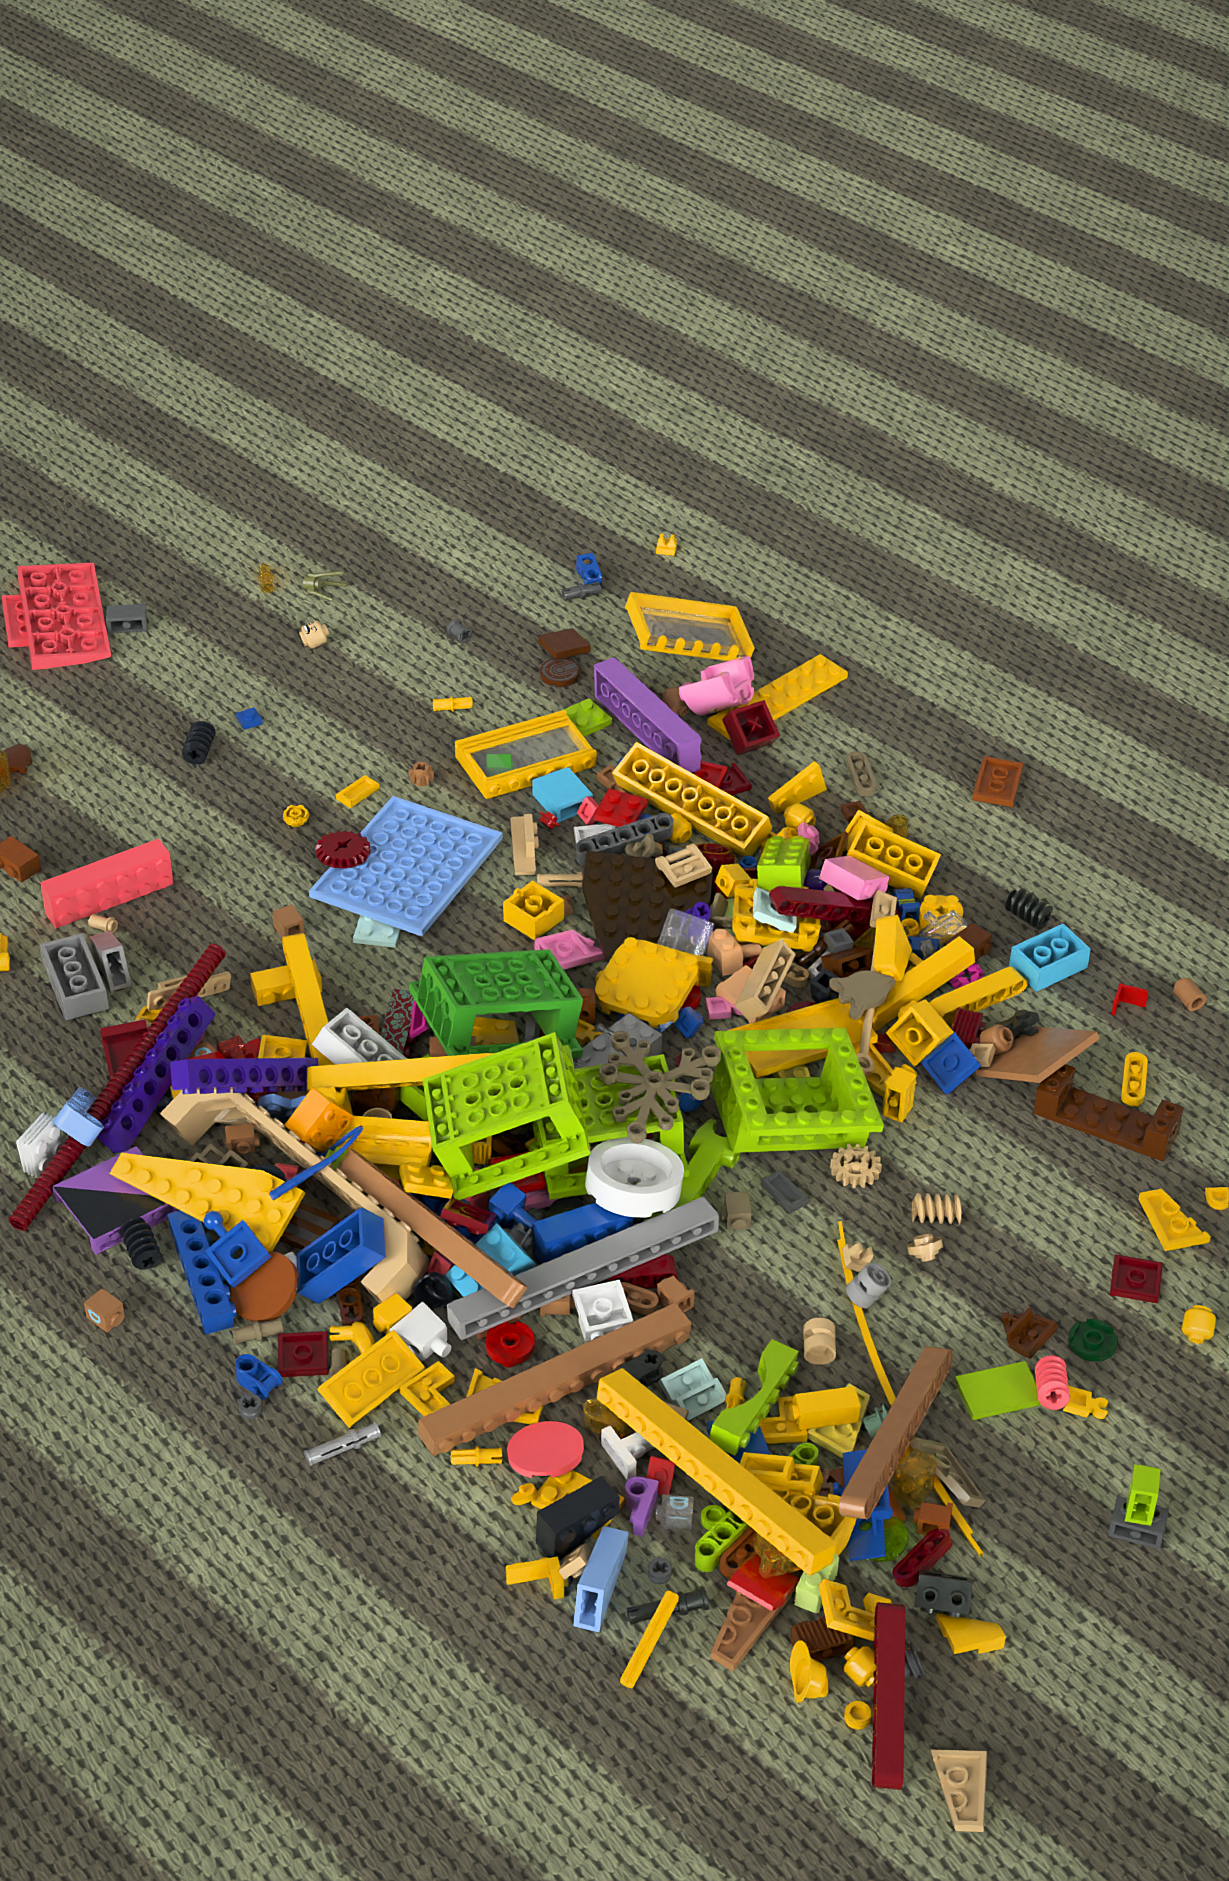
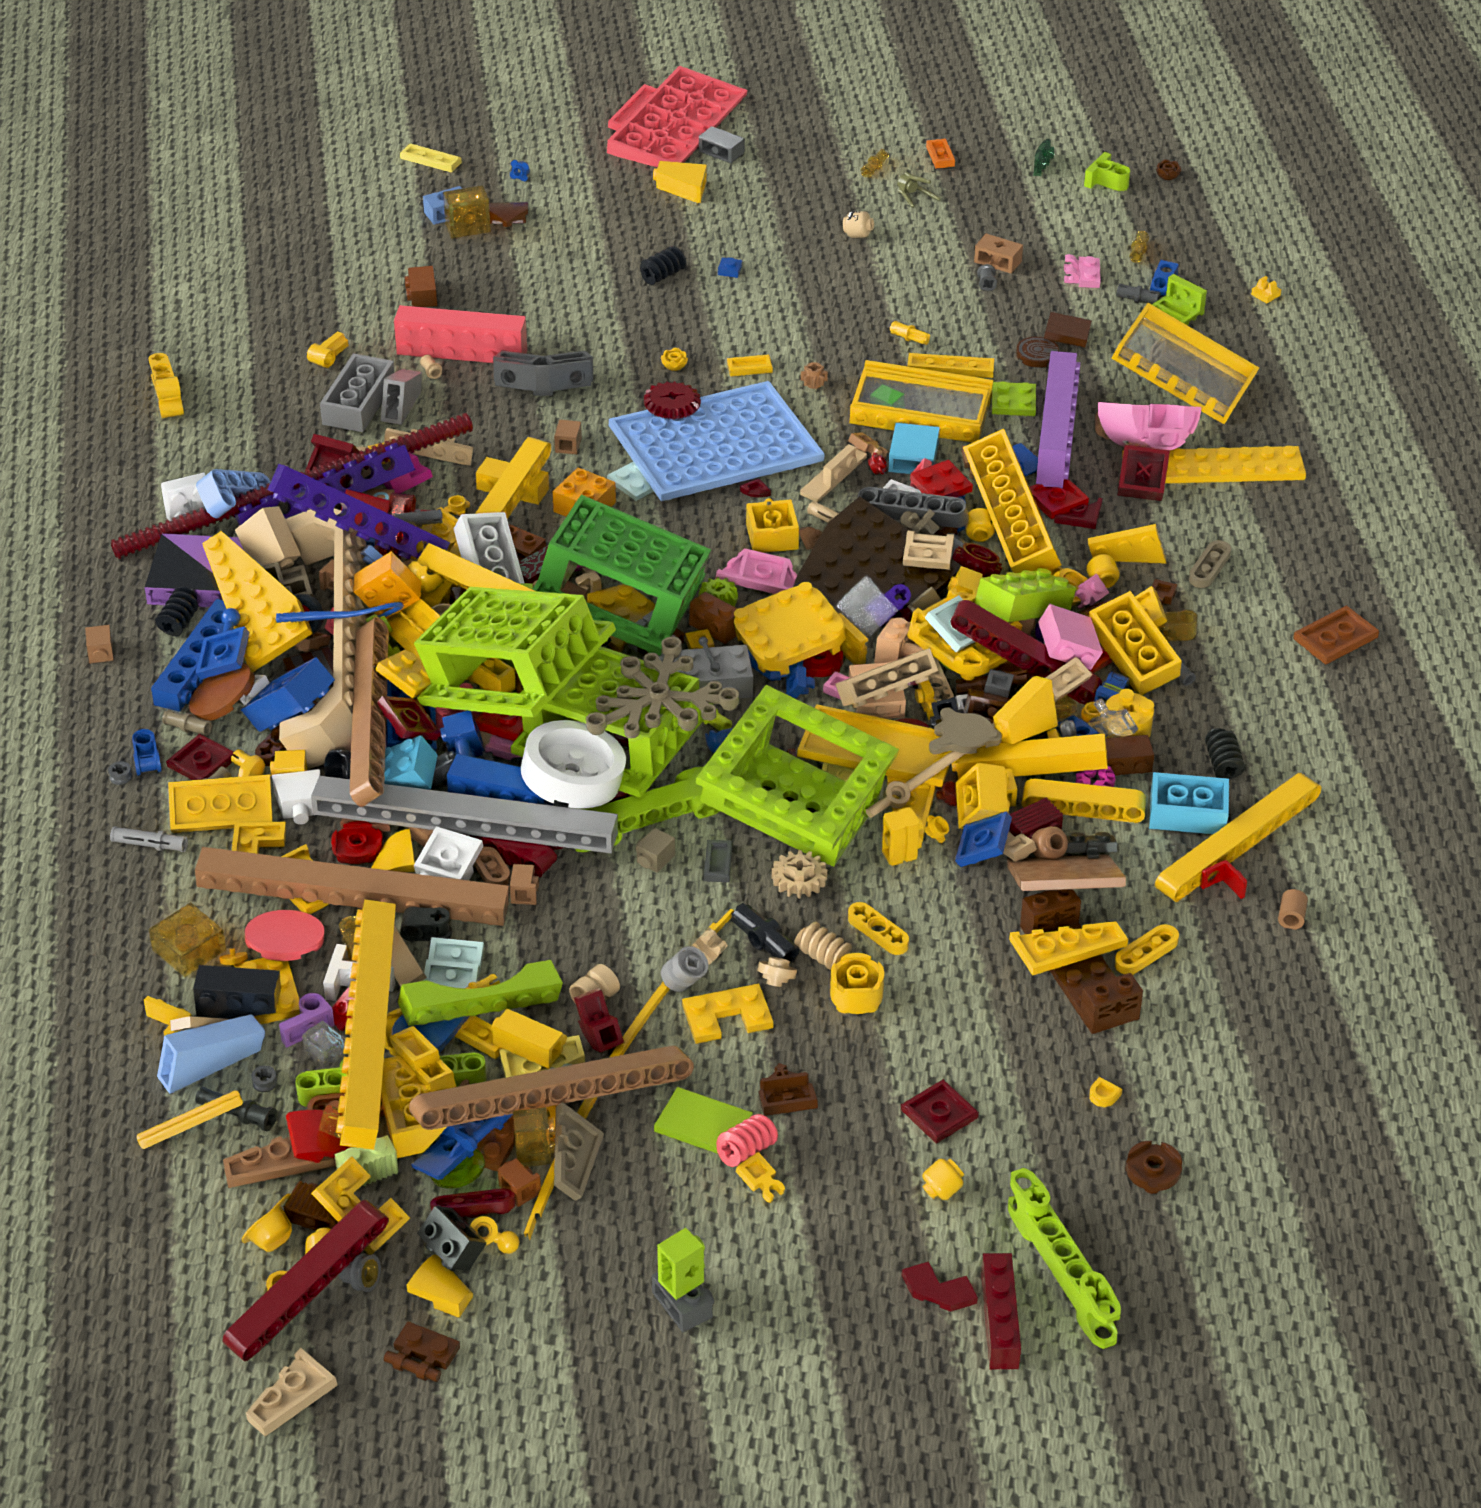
camera: 40 degrees right, 0 degrees up
(129, 662) = (681, 179): none -> yellow slope
(165, 1137) = (268, 538): none -> tan brick
(211, 881) = (543, 373): none -> dark grey brick
(262, 1026) = (457, 505): none -> yellow plate
(269, 1048) = (421, 518): none -> dark grey pin
(308, 546) = (940, 153): none -> orange plate
(360, 964) = (583, 483): none -> light orange brick
(391, 514) = (1043, 156): none -> clear green slope
(446, 607) = (999, 253): none -> medium nougat brick
(456, 505) = (1107, 174): none -> lime tile
(476, 1456) = (231, 908): yellow axle -> none
(476, 1502) = (187, 939): none -> clear yellow brick
(478, 887) = (756, 488): none -> dark red tile
(493, 482) = (1168, 169): none -> reddish brown plate
(512, 713) = (953, 364): none -> yellow plate
(519, 809) = (866, 444): none -> medium nougat plate
(522, 592) = (1083, 271): none -> bright pink plate
(541, 553) = (1139, 246): none -> clear yellow pin
(554, 1333) = (396, 853): none -> yellow slope
(618, 582) = (1182, 300): none -> lime plate
(793, 983) = (925, 696): none -> yellow plate
(858, 1369) = (596, 1024): none -> dark red brick
(883, 1225) = (764, 933): none -> black piece
(906, 1304) = (705, 1009): none -> yellow plate
(956, 1167) = (873, 919): none -> yellow beam
(972, 1568) = (506, 1241): none -> yellow plate
(990, 1221) = (857, 984): none -> yellow brick
(1012, 1683) = (425, 1345): none -> reddish brown plate
(1090, 1109) = (1055, 949): none -> yellow wing
(1093, 1340) = (844, 1139): dark green tile -> none
(1100, 964) = (1238, 835): none -> yellow beam
(1169, 1223) = (1028, 1084): yellow wing -> none

